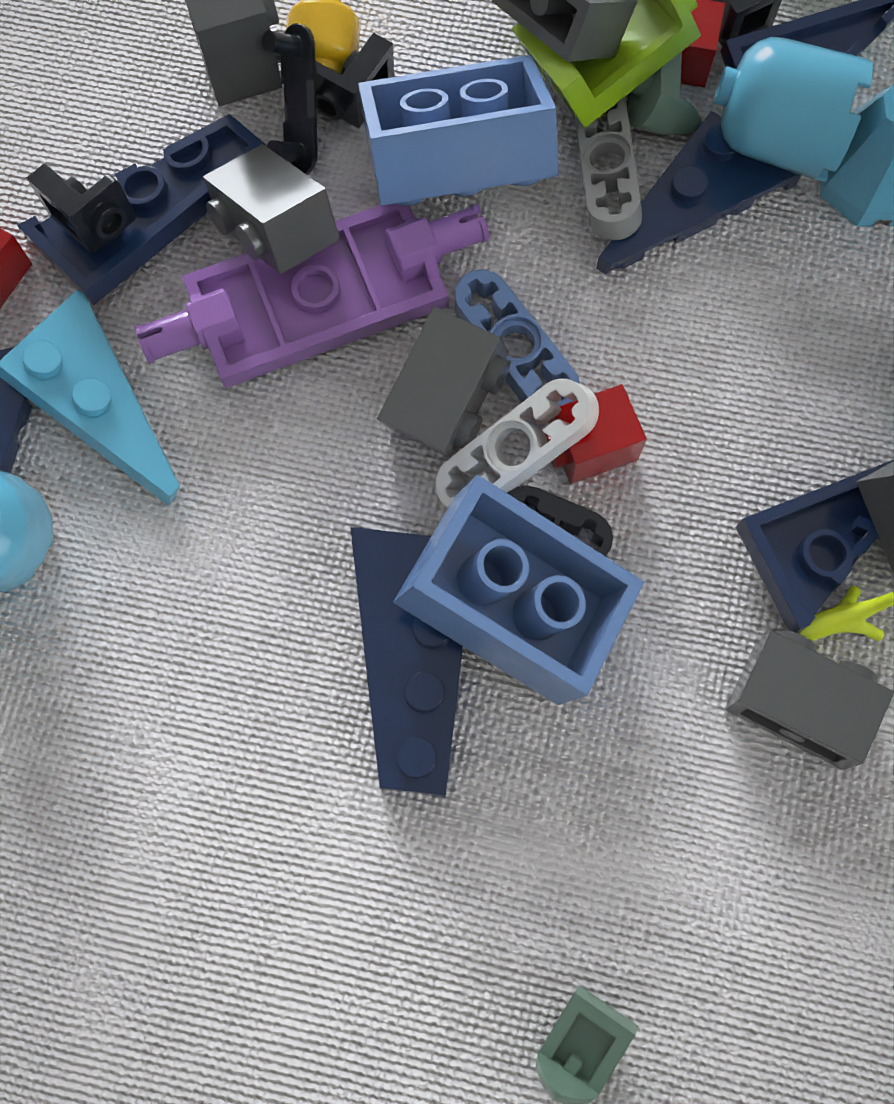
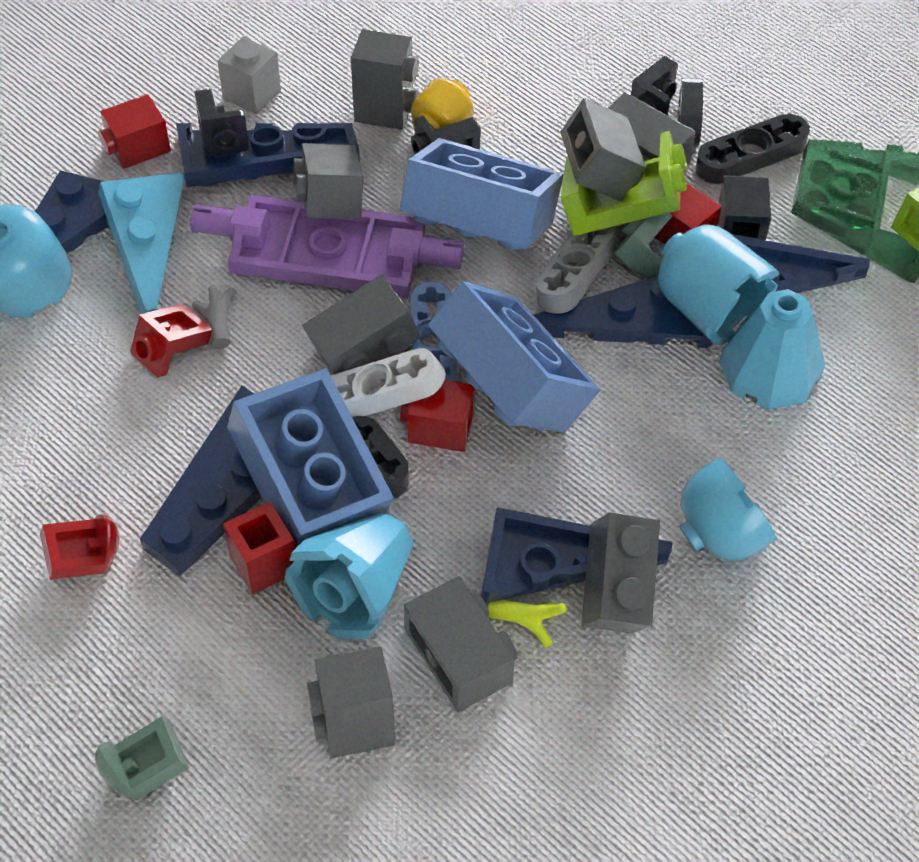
camera: 30 degrees right, 20 degrees down
(60, 112) = (249, 75): none -> light grey brick
(221, 515) = (166, 333): none -> red bracket
(252, 452) = (217, 315): none -> light grey bar
(300, 106) = (415, 104): black piece -> none
(322, 842) = (79, 547): none -> red plate
(533, 723) = (259, 547): none -> red brick
(641, 329) = (512, 359): none -> medium blue brick
(655, 691) = (350, 573): none -> medium azure cone
(775, 851) = (352, 702): none -> dark grey brick

